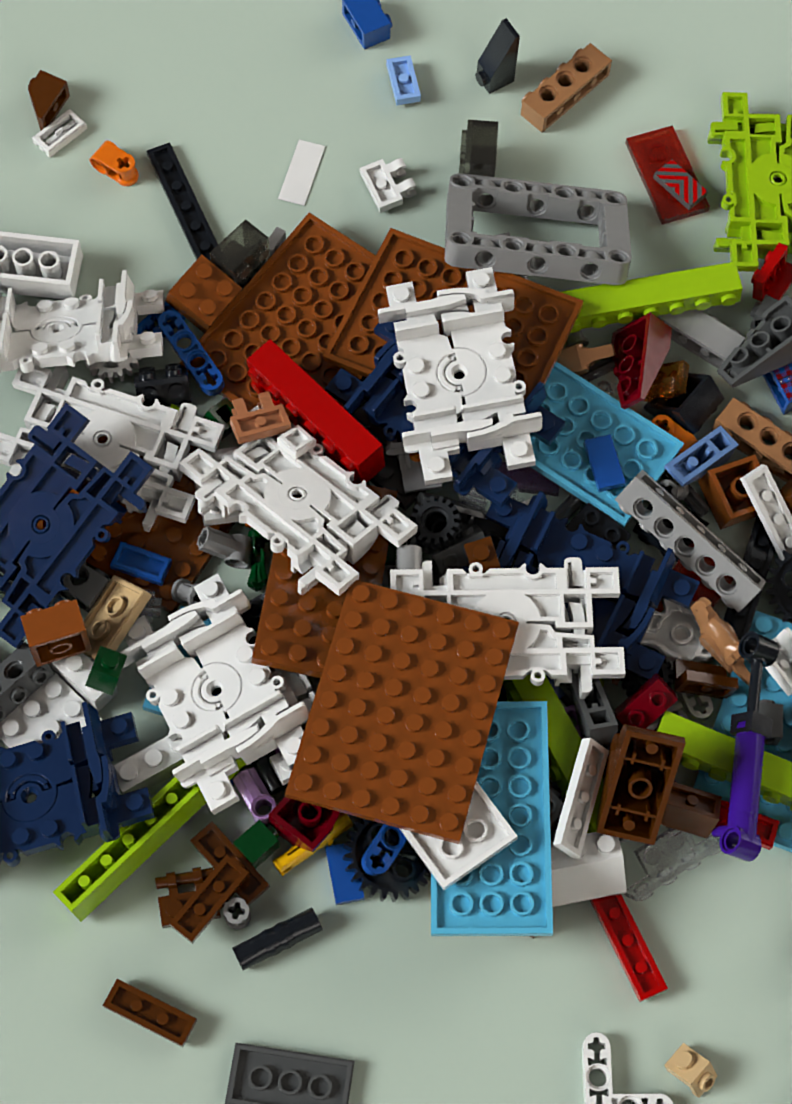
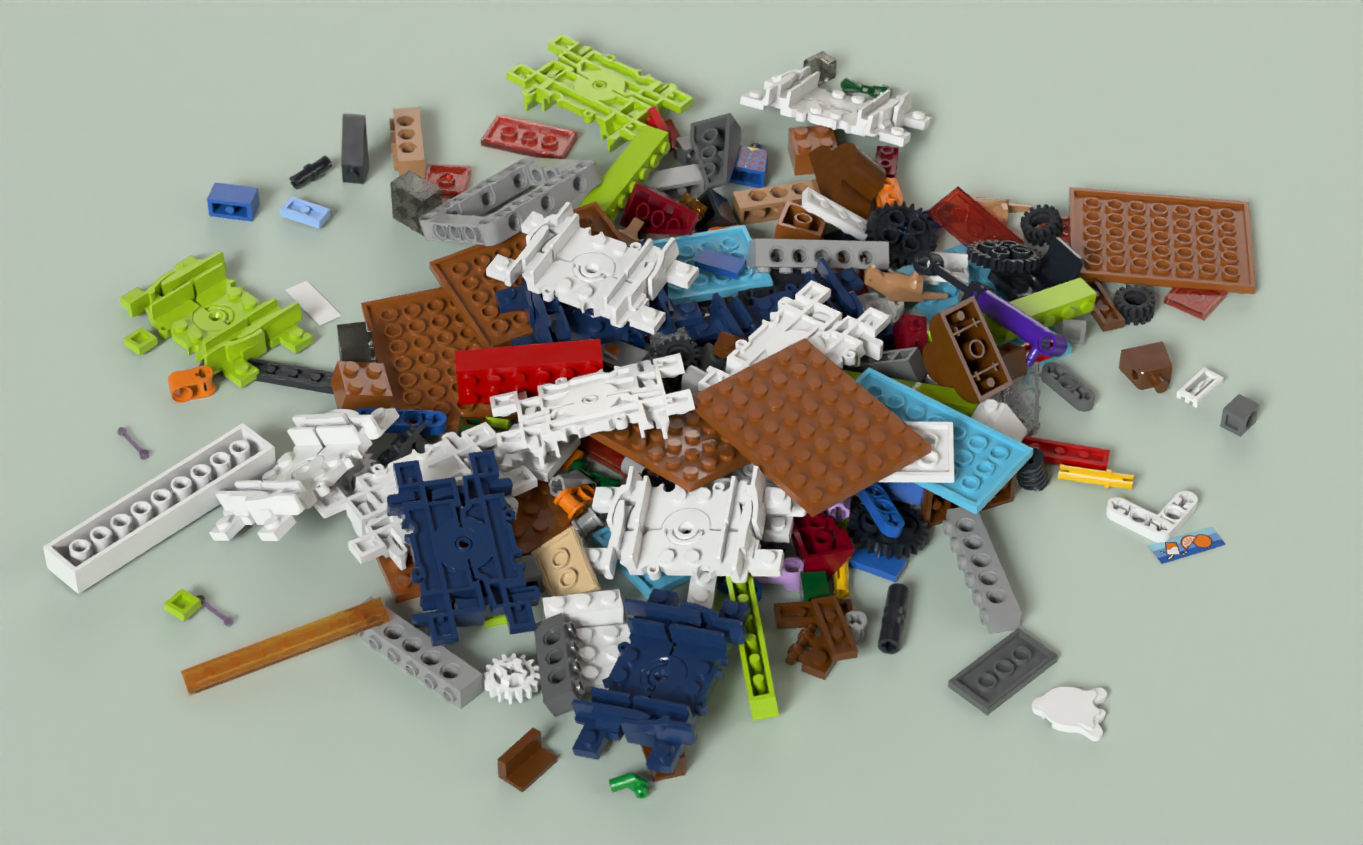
camera: 50 degrees left, 25 degrees down
(13, 192) = (144, 454): none -> clear purple hinge
(47, 97) = (89, 391): reddish brown slope -> none
(55, 632) = (558, 579): dark orange brick -> none
(62, 135) = (125, 415): white tile -> none
(106, 670) = (611, 577): dark green brick -> none
(137, 87) = (140, 341): none -> lime plate
(141, 563) = (537, 533): blue tile -> none
(150, 1013) = (884, 713): reddish brown plate -> none
(190, 104) = (225, 321): none -> lime piece
(199, 565) = (575, 500): none -> orange piece
(258, 424) = (508, 395): nougat plate -> none
(296, 441) = (546, 384): white tile -> none
(362, 1039) = (982, 570): none -> light grey brick
(382, 186) = (375, 266): white plate -> none
(459, 44) = (310, 172): none -> black pin
(547, 153) = (450, 178): none -> clear red tile
(569, 935) = (1034, 474): none -> black piece
(580, 797) = (943, 390): white plate -> none
(627, 1008) = (1098, 477): none -> yellow pin
(680, 184) = (547, 133): dark grey tile -> none
(692, 1070) = (1173, 470): tan bracket -> none
(702, 456) = (761, 222): medium blue slope -> none
(703, 679) = (926, 308): reddish brown panel -> none
(722, 903) = (1079, 397): none -> dark grey beam

